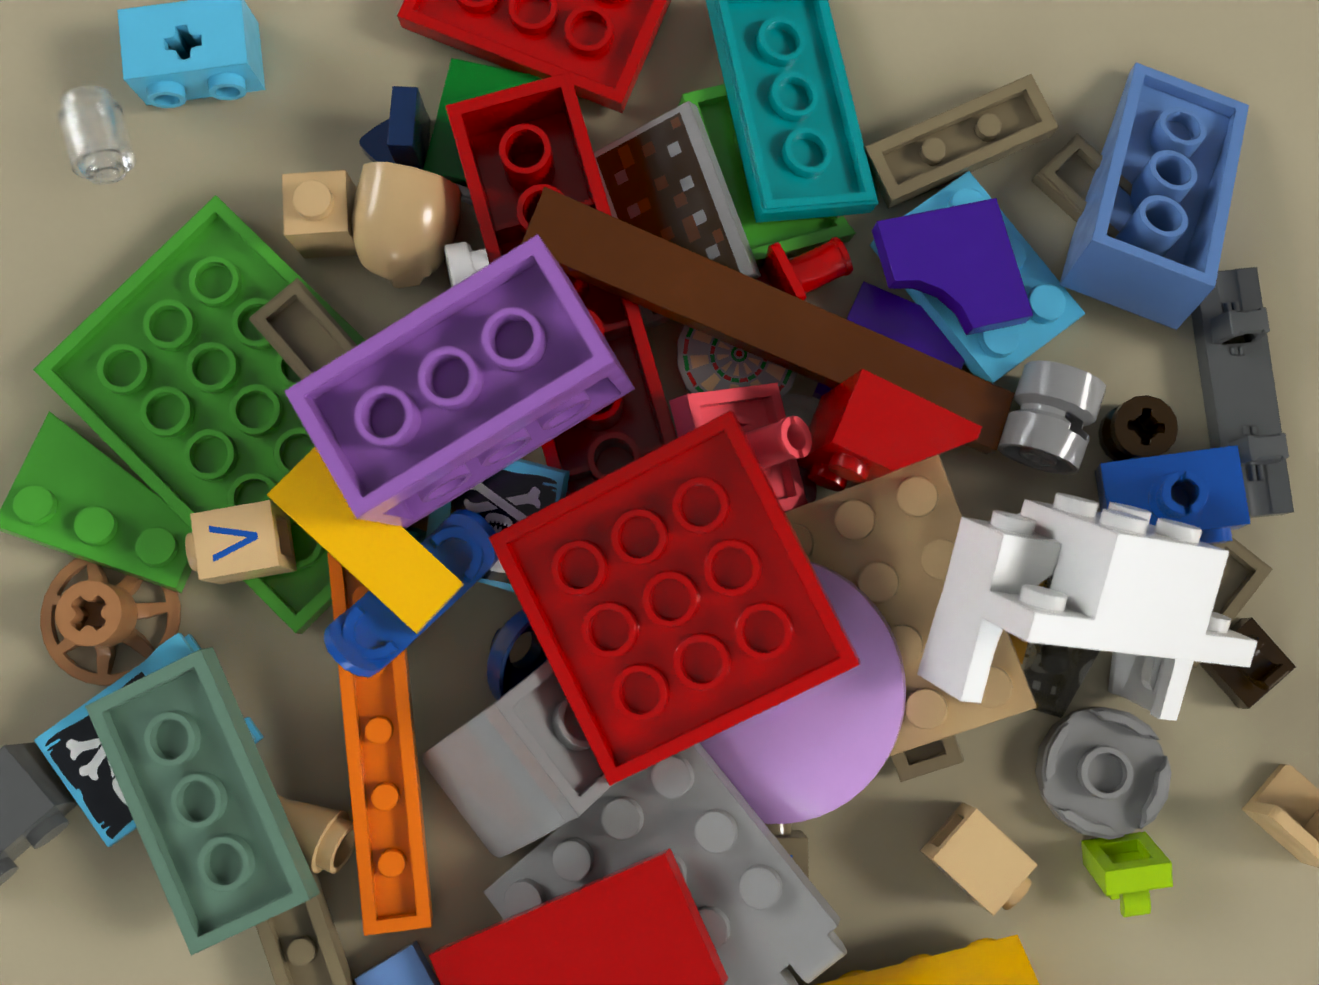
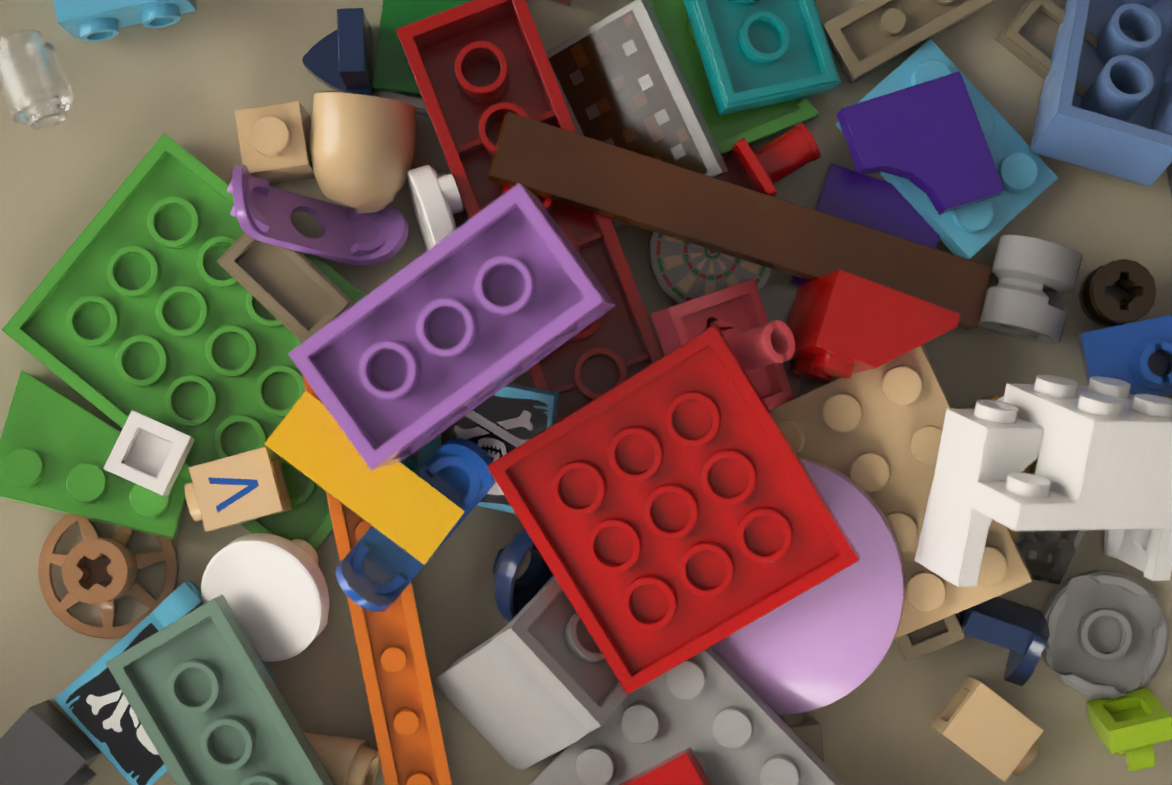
camera: 10 degrees left, 5 degrees up
(159, 501) = (149, 453): none -> white tile
(264, 651) = (272, 592): none -> white tile
(304, 276) = (345, 238): none -> medium lavender piece
(1011, 755) = (1011, 627): none -> dark blue tile

